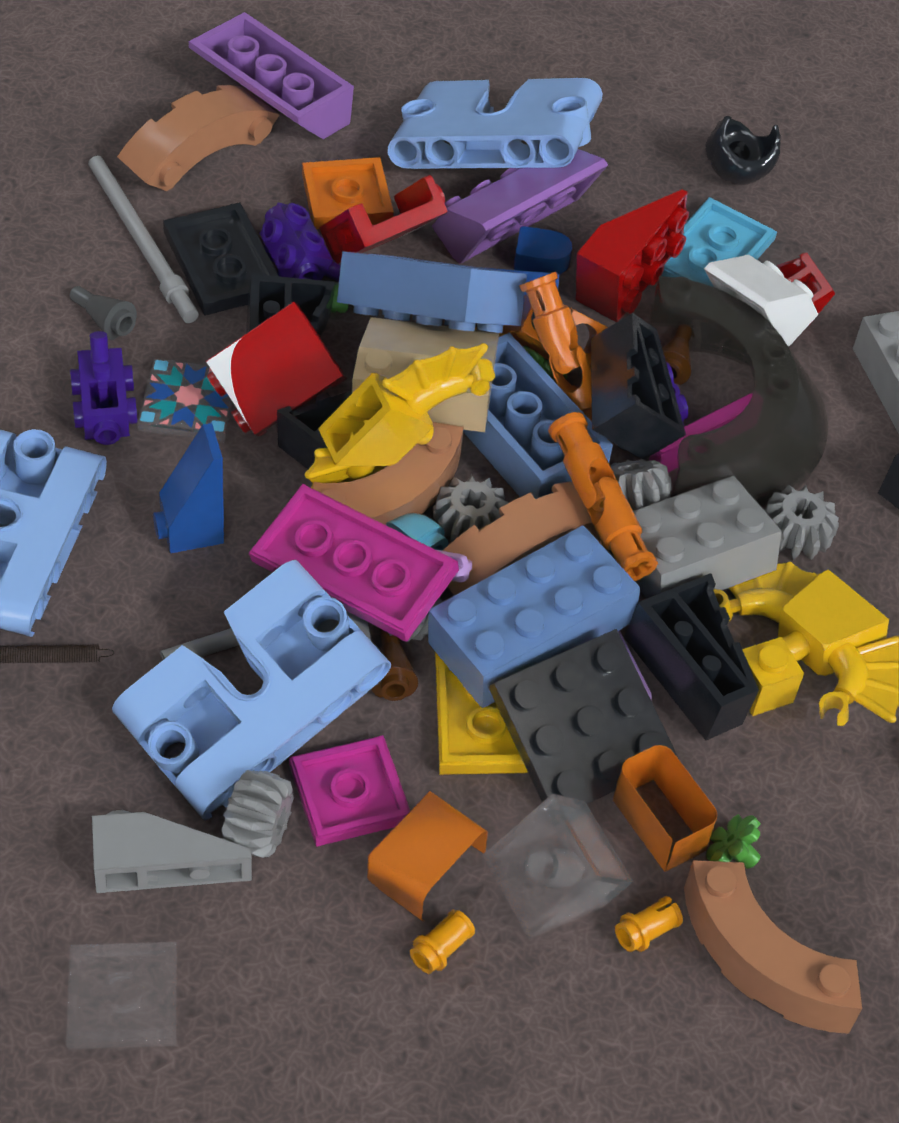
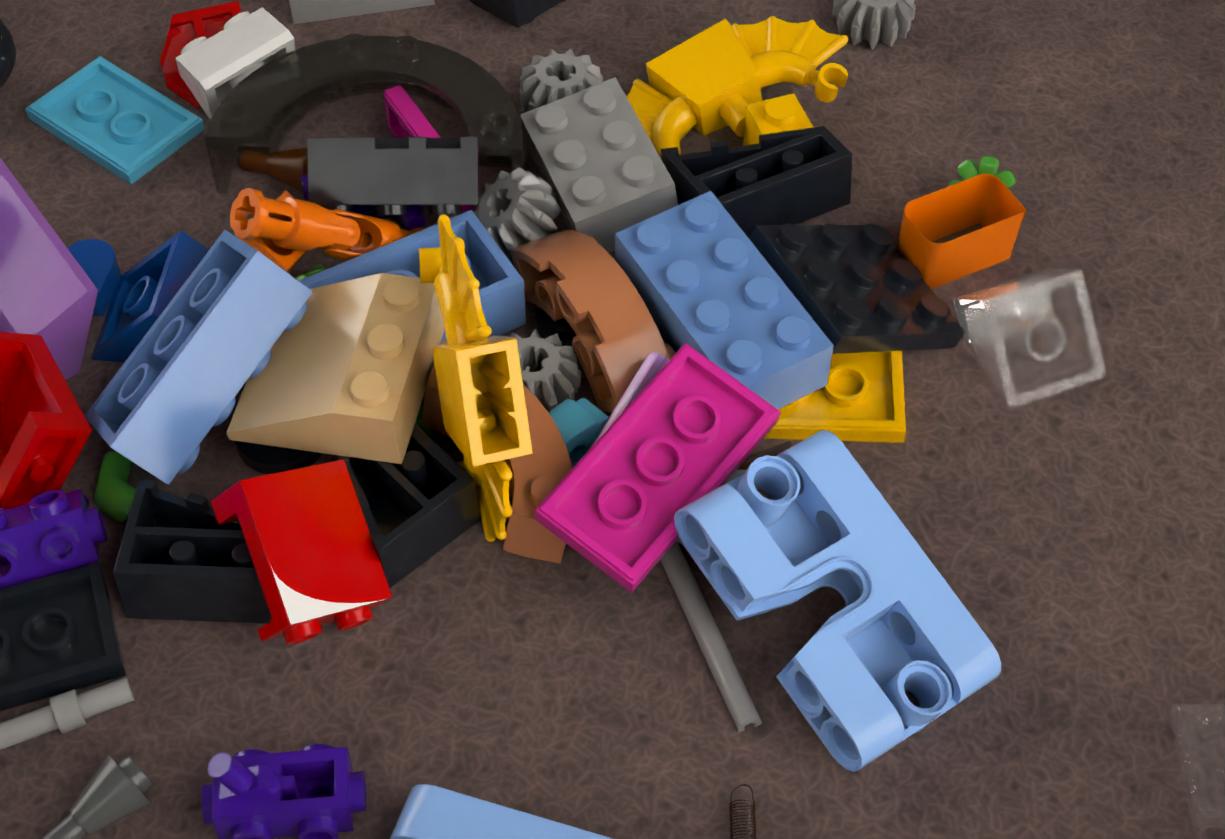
camera: 80 degrees left, 0 degrees up
(153, 853) = (1066, 737): light grey slope -> none
(182, 401) = (292, 693): tile -> none
(193, 497) = (525, 646): blue slope -> none
(258, 812) = (1011, 600): light grey gear -> none
(349, 790) = (951, 521): dark pink tile -> none
(422, 851) = (1045, 439): orange piece -> none
(432, 950) = (1133, 446): light orange pin -> none
(602, 495) = (543, 220): orange piece -> none
(630, 255) = (158, 172): red slope -> none
(639, 929) = (1096, 274): light orange pin -> none
(762, 958) = (1111, 188): nougat brick -> none

